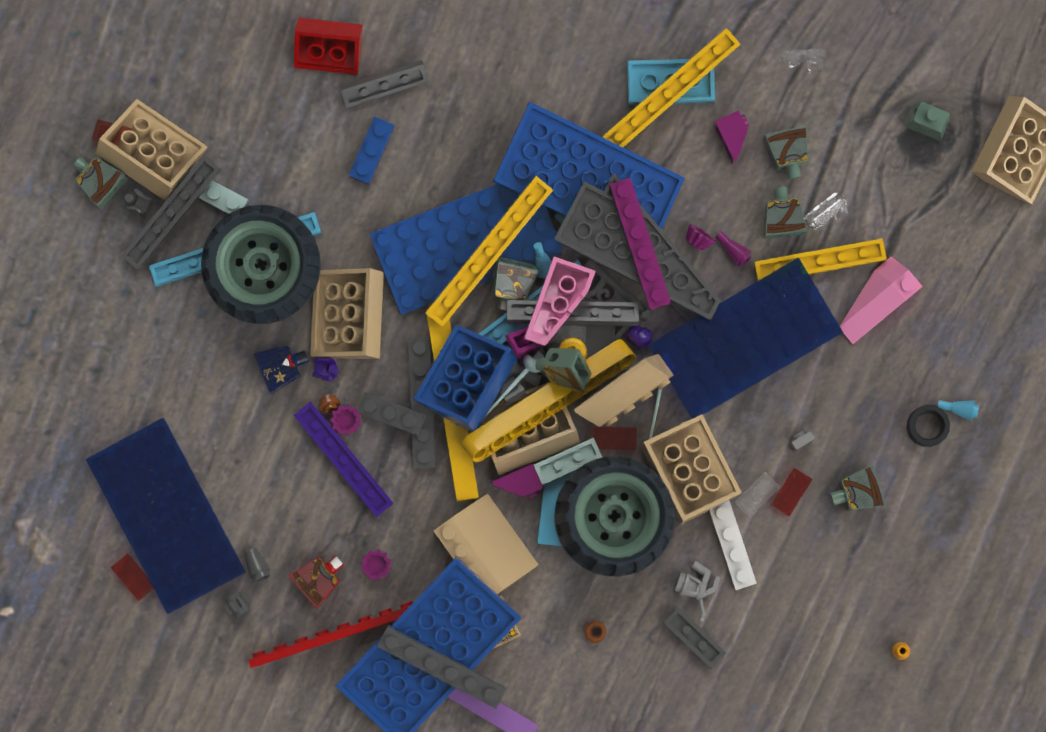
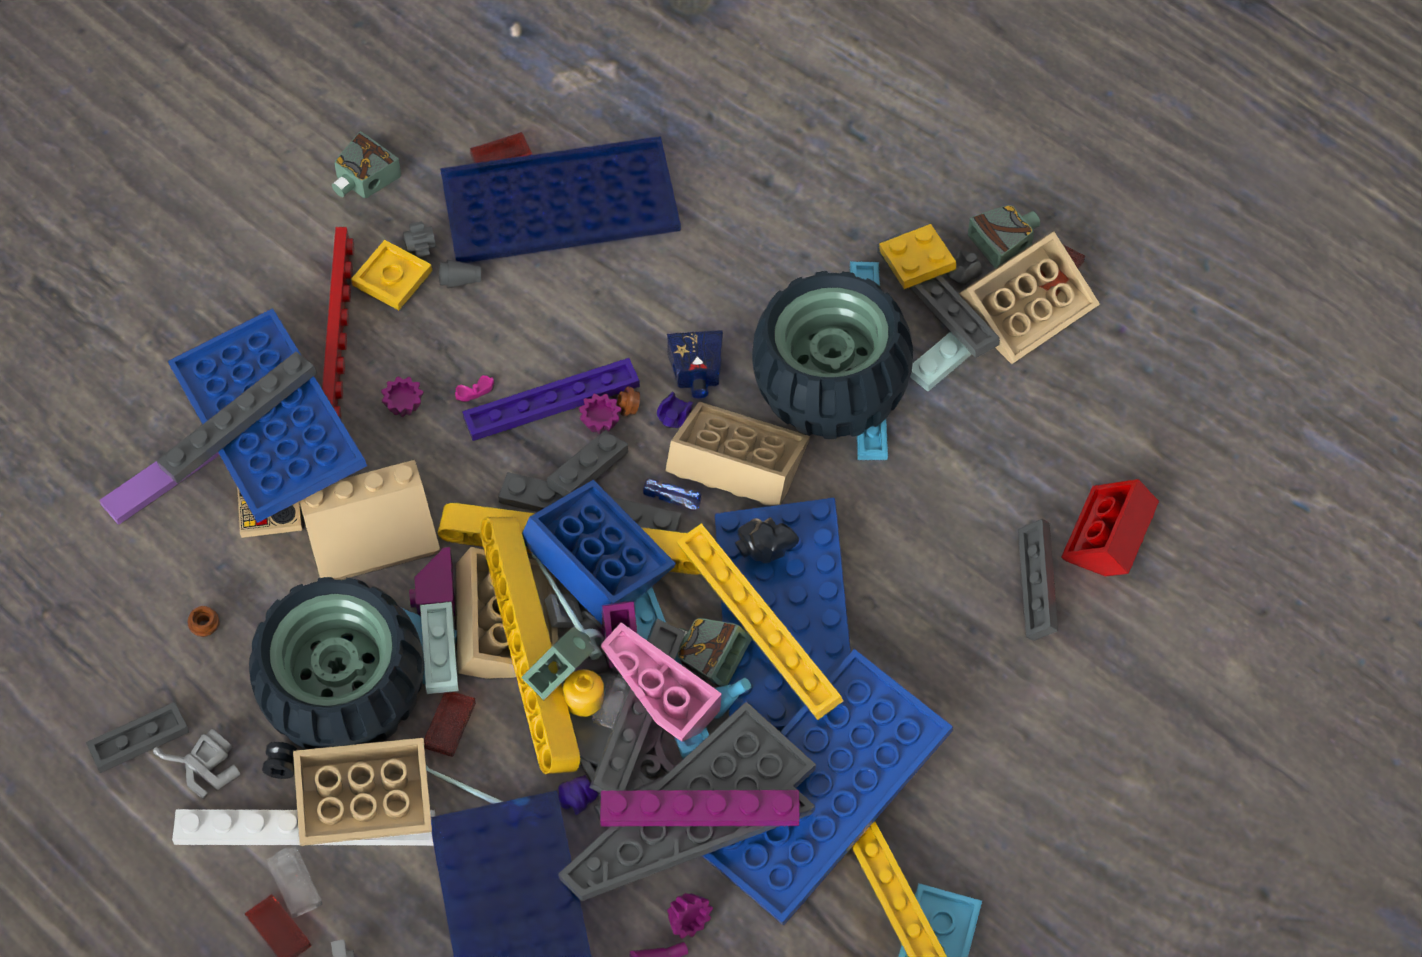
camera: 110 degrees right, 25 degrees down
(144, 234) = (917, 256): none -> yellow plate
(183, 673) = (365, 167): none -> torso
(273, 614) = (391, 275): none -> yellow plate
(317, 579) = (411, 329): torso -> none
(355, 523) = (483, 387): none -> dark pink piece
(371, 150) = (950, 544): blue plate -> none
(393, 349) = (672, 493): none -> clear blue axle
(423, 268) = (765, 540): none -> black head
(625, 391) = (500, 733): tan slope -> none
(681, 536) = (279, 760): none -> black wheel

